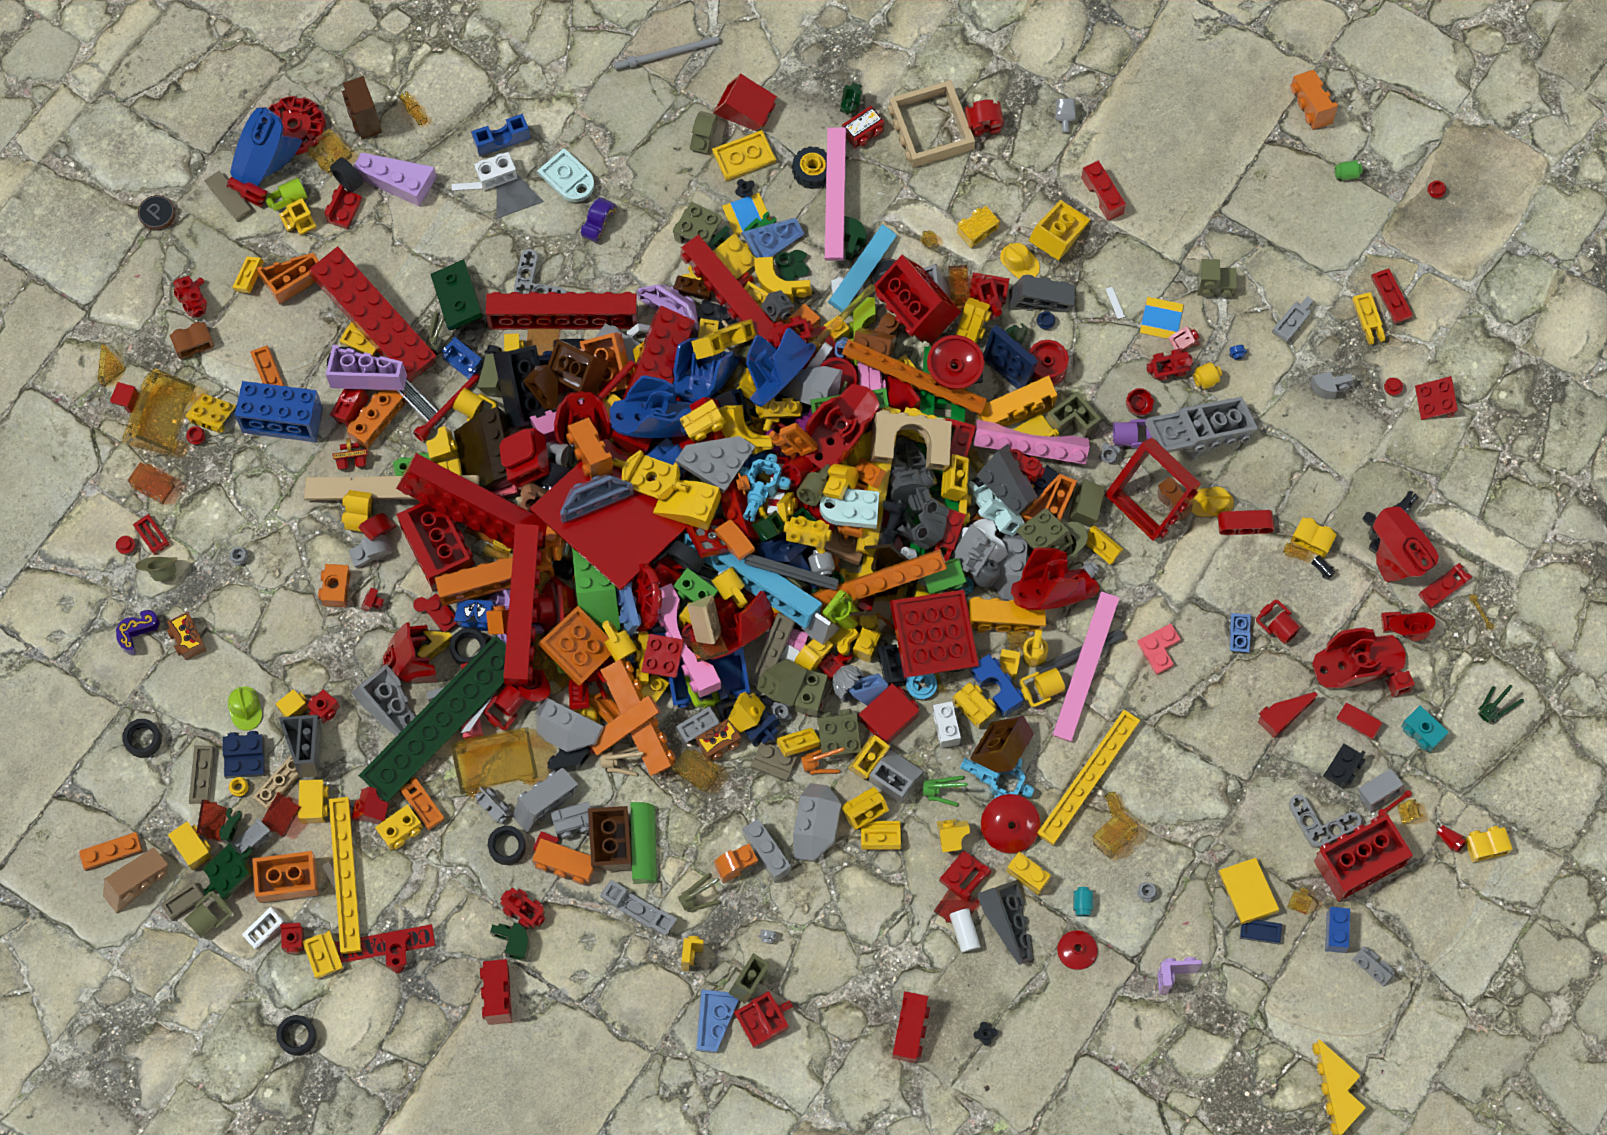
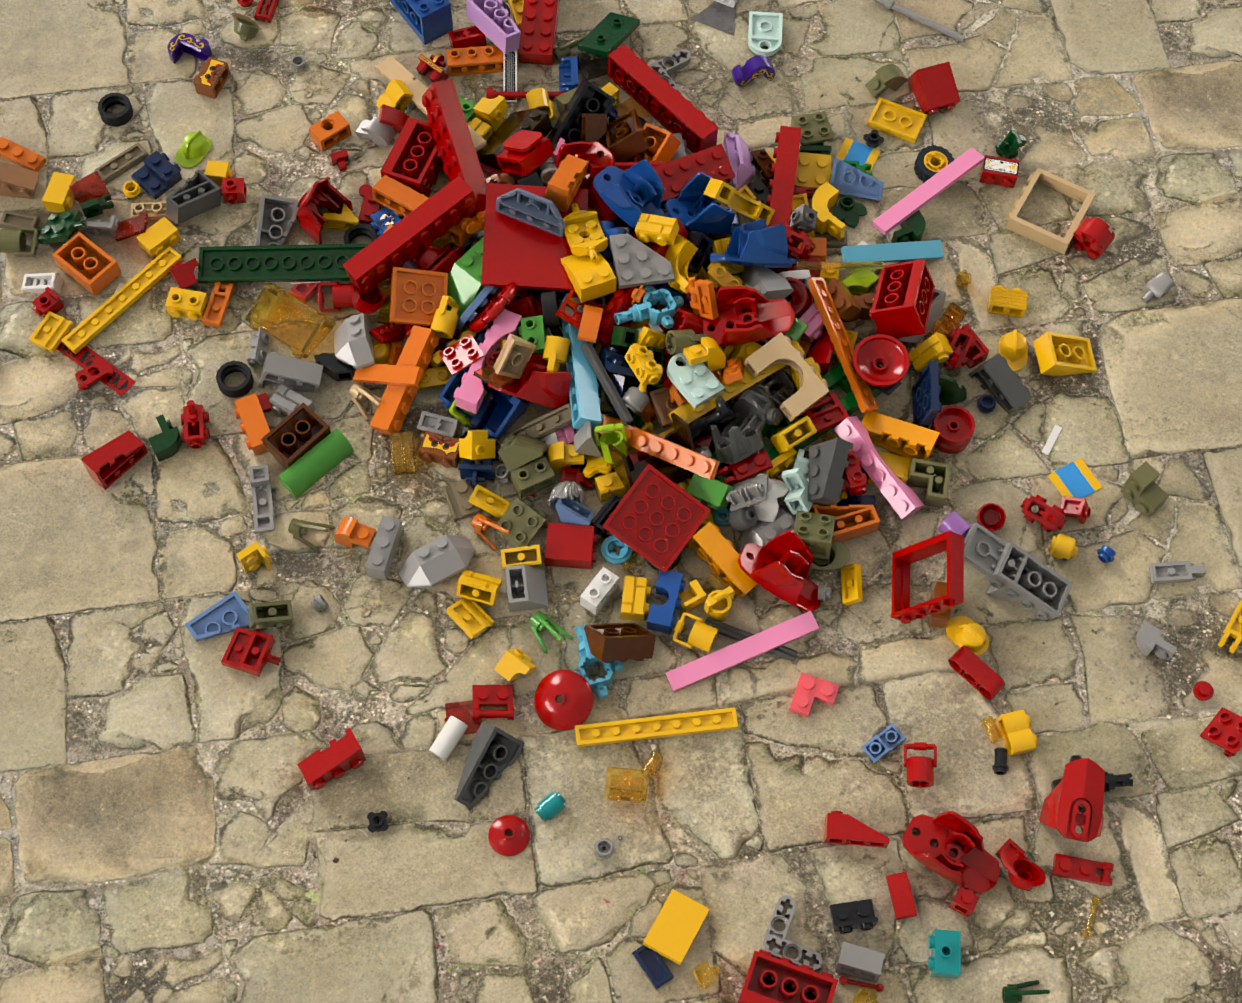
camera: 45 degrees right, 5 degrees down
(1028, 873) = (535, 746): yellow brick -> none
(1087, 503) = (873, 545): olive brick -> none
(1097, 180) = (1128, 358): red arch -> none
(1109, 458) = (924, 529): light grey plate -> none
(1170, 967) = (547, 913): lavender bracket -> none

